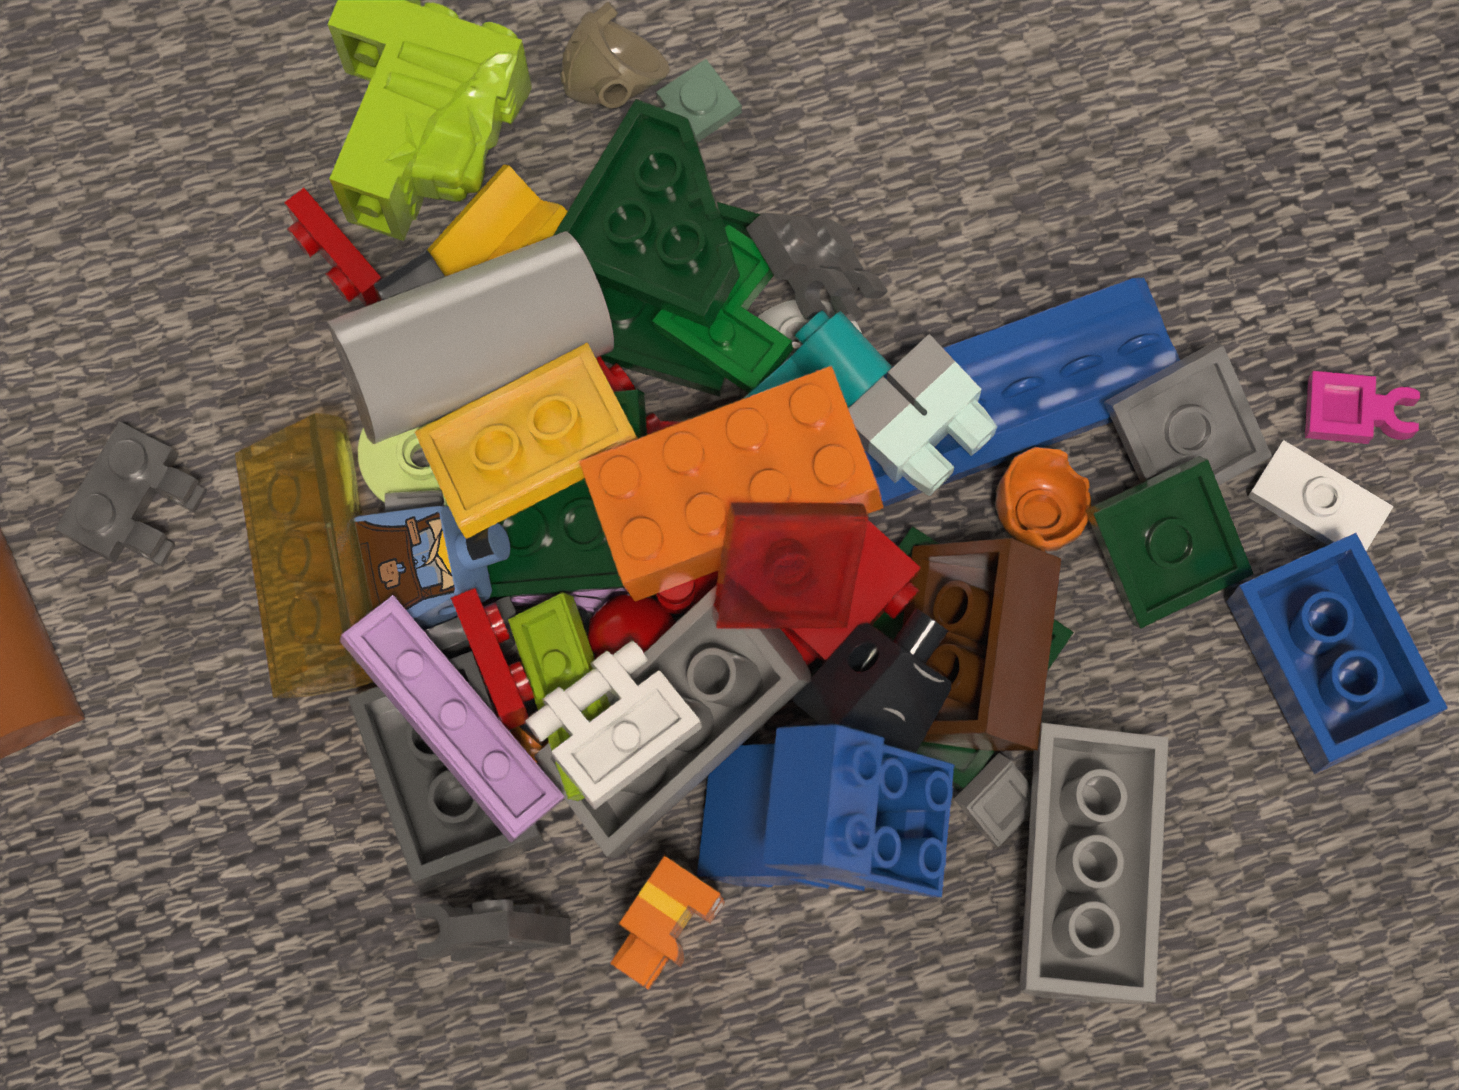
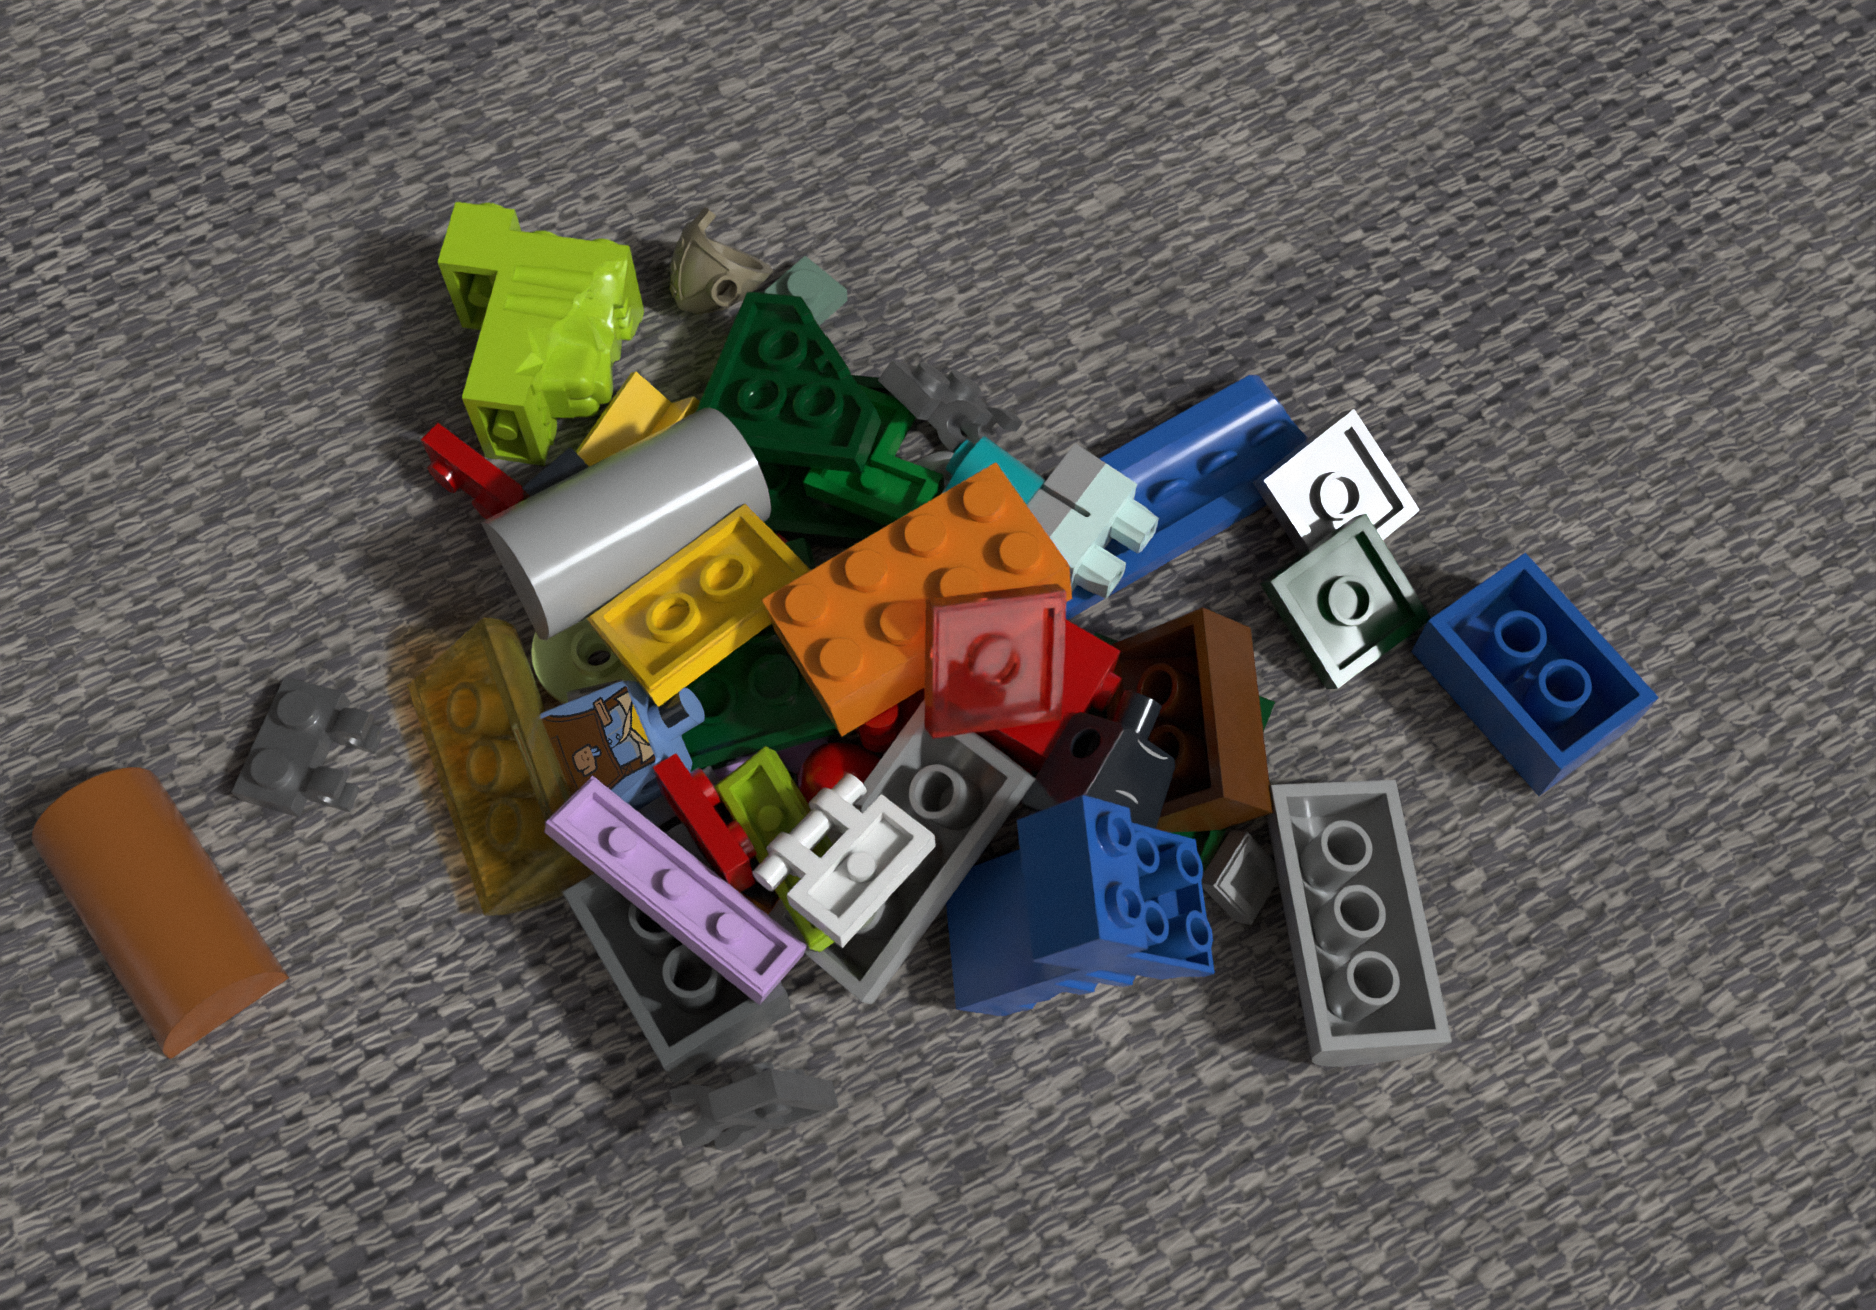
camera: 15 degrees left, 10 degrees down
(659, 918) = (925, 1056): orange hips -> none
(1043, 499) = (1216, 579): orange hair -> none
(1318, 498) = (1468, 540): white plate -> none
(1349, 409) = (1480, 458): dark pink plate -> none

